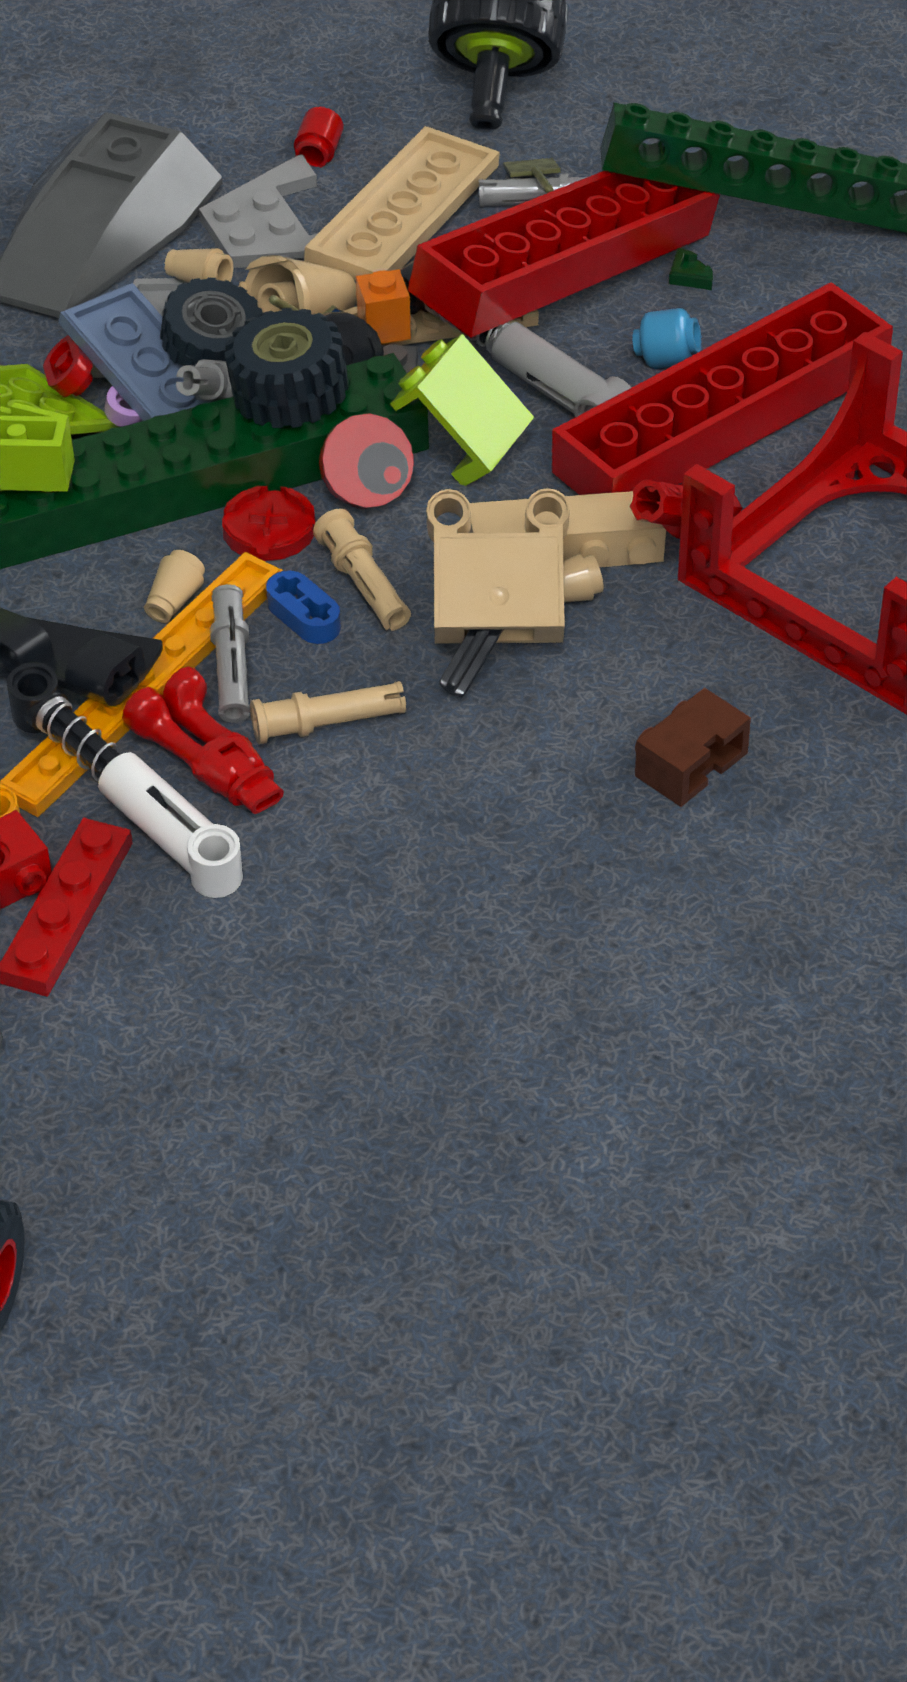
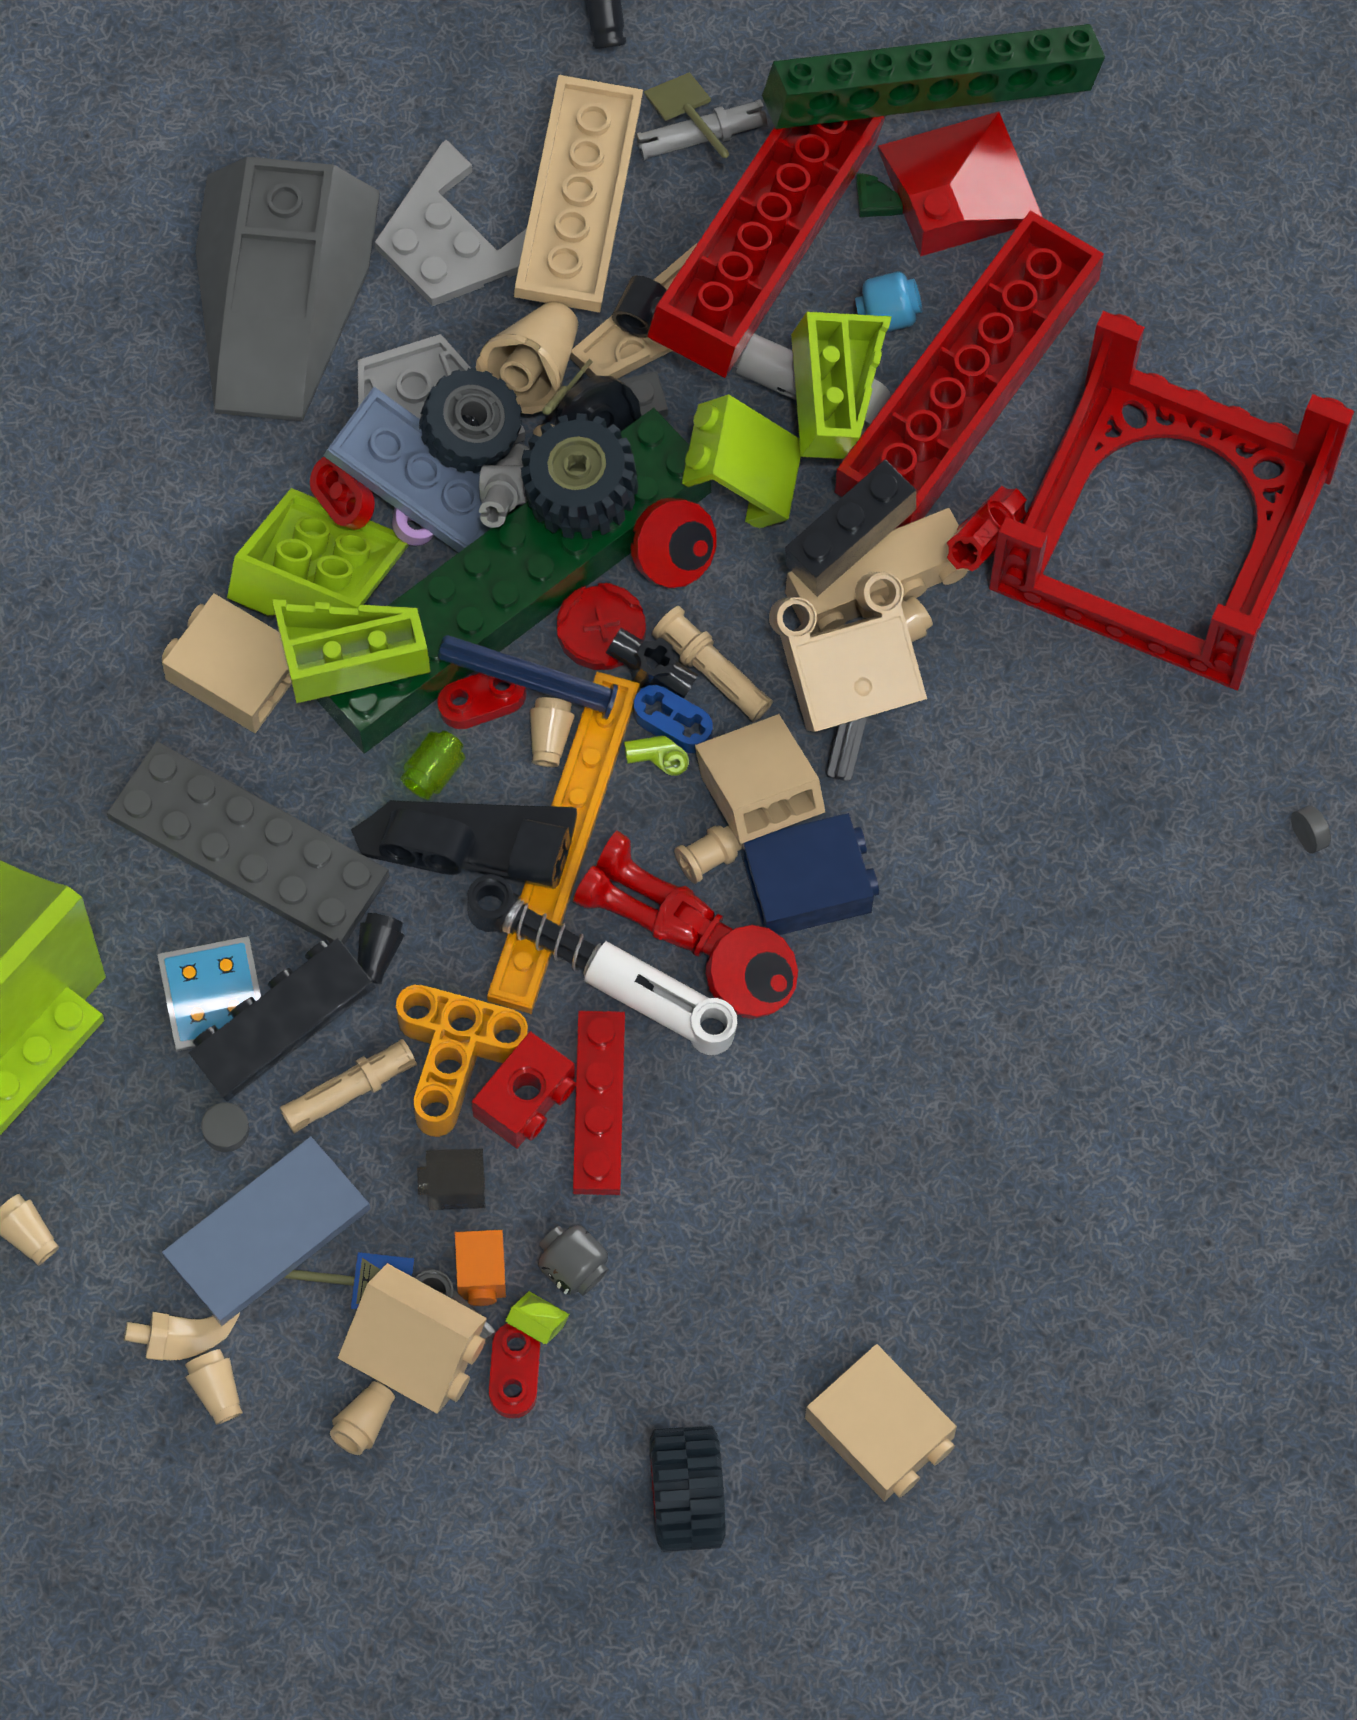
camera: 20 degrees left, 20 degrees up
(43, 586) = (433, 764): none -> clear neon green brick
(121, 551) = (483, 701): none -> red plate
(168, 522) = (528, 674): none -> dark blue axle
(199, 263) = (421, 338): tan cone -> none
(225, 1277) = (882, 1424): none -> tan brick
(229, 636) = (628, 780): light grey pin -> none
(276, 628) = (660, 751): none -> lime arm
(280, 823) = (752, 971): none -> red tile
(300, 549) = (635, 654): none -> black axle
(318, 136) = (454, 111): red brick -> none
(362, 657) = (760, 778): none -> tan brick
(379, 757) = (810, 874): none -> dark blue brick
(384, 304) = (621, 348): orange brick -> none
(556, 455) = (851, 527): none -> black brick
(582, 353) = (834, 378): none -> lime wedge
(690, 744) = (1072, 781): copper brick -> none
(769, 272) = (959, 183): none -> red slope

